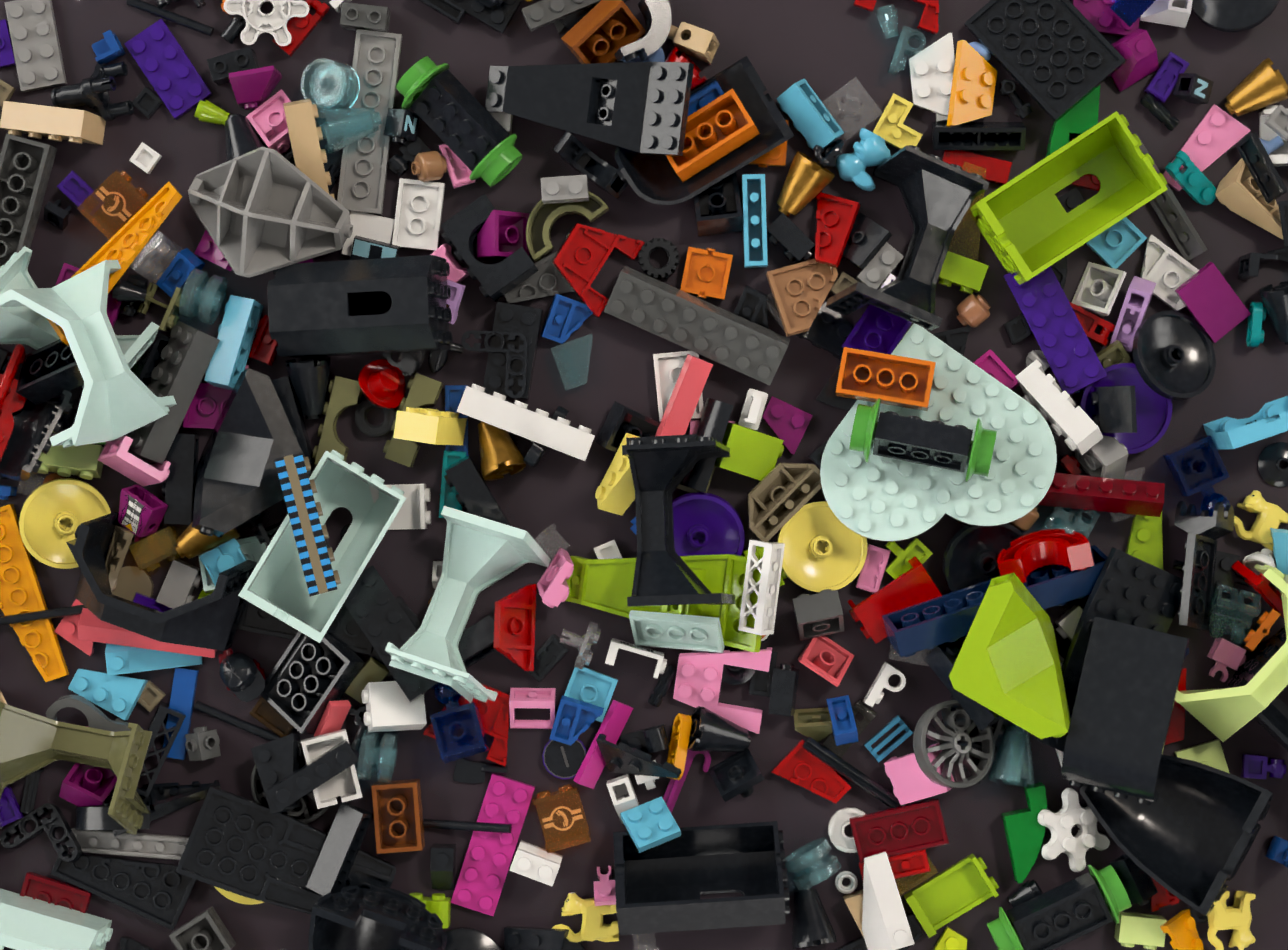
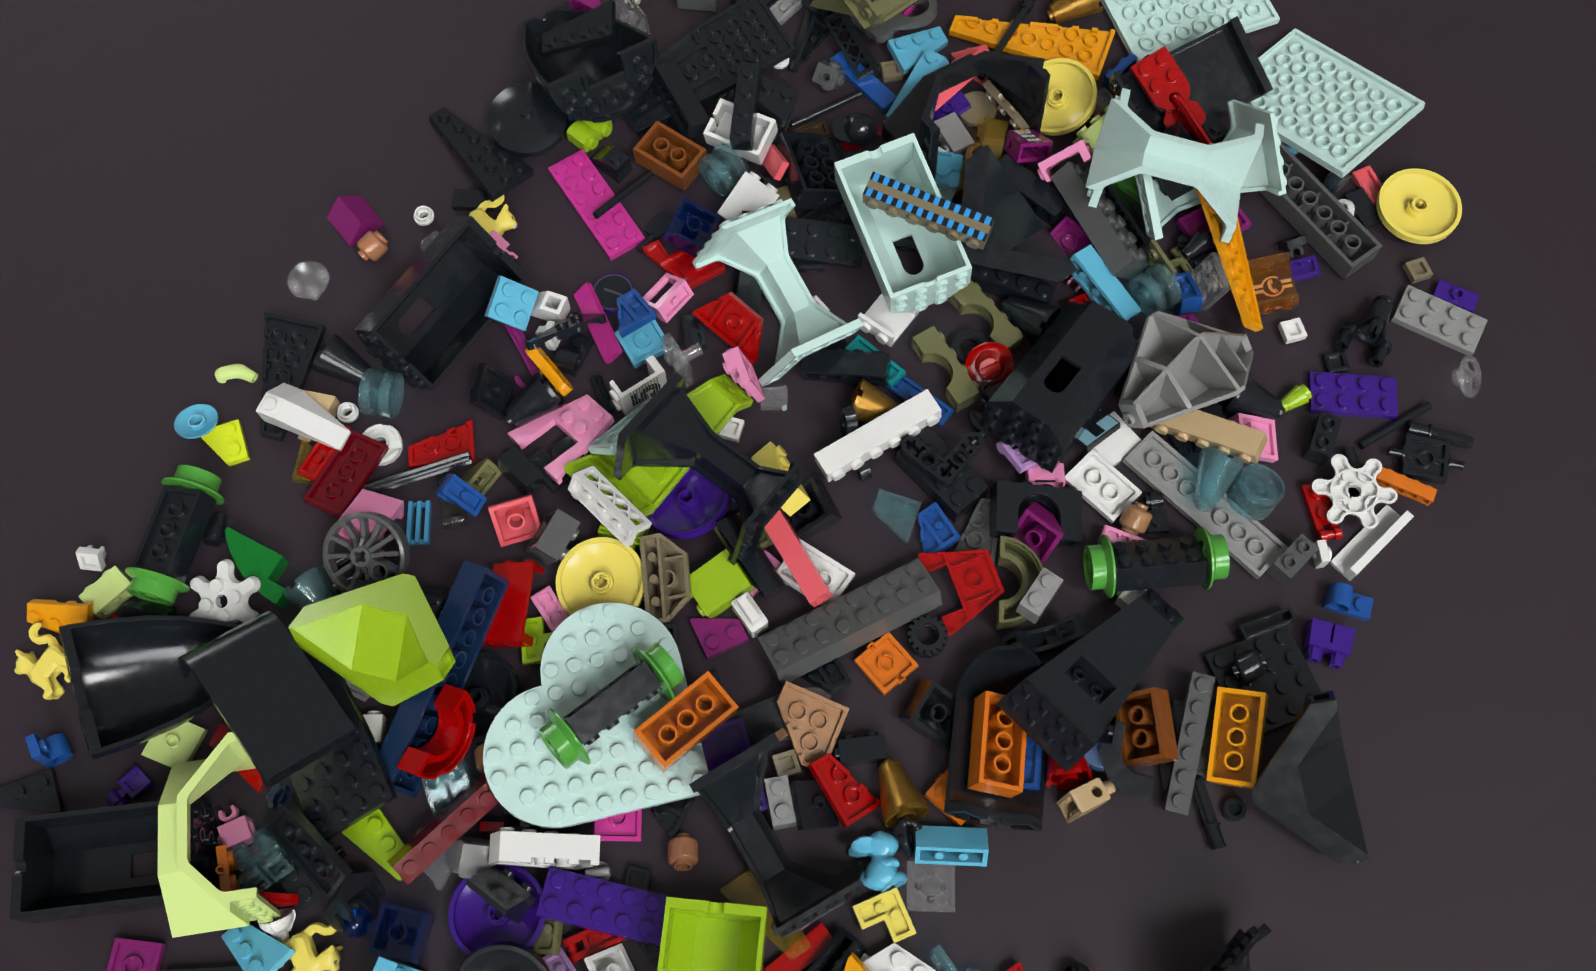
camera: 130 degrees right, 20 degrees down
(52, 122) = (1365, 286): tan wedge -> none
(108, 48) = (1399, 365): blue panel -> none
(254, 85) = (1294, 439): magenta slope -> none
(401, 125) = (1183, 521): black brick -> none
(430, 426) = (930, 364): light yellow brick -> none
(536, 863) = (555, 214): white panel -> none
(562, 818) = (570, 259): clear orange panel -> none
(754, 221) = (898, 730): medium azure brick -> none
(875, 692) = (460, 547): white plate -> none
(951, 893) = (268, 477): lime panel -> none
(963, 273) = (721, 868): lime brick -> none

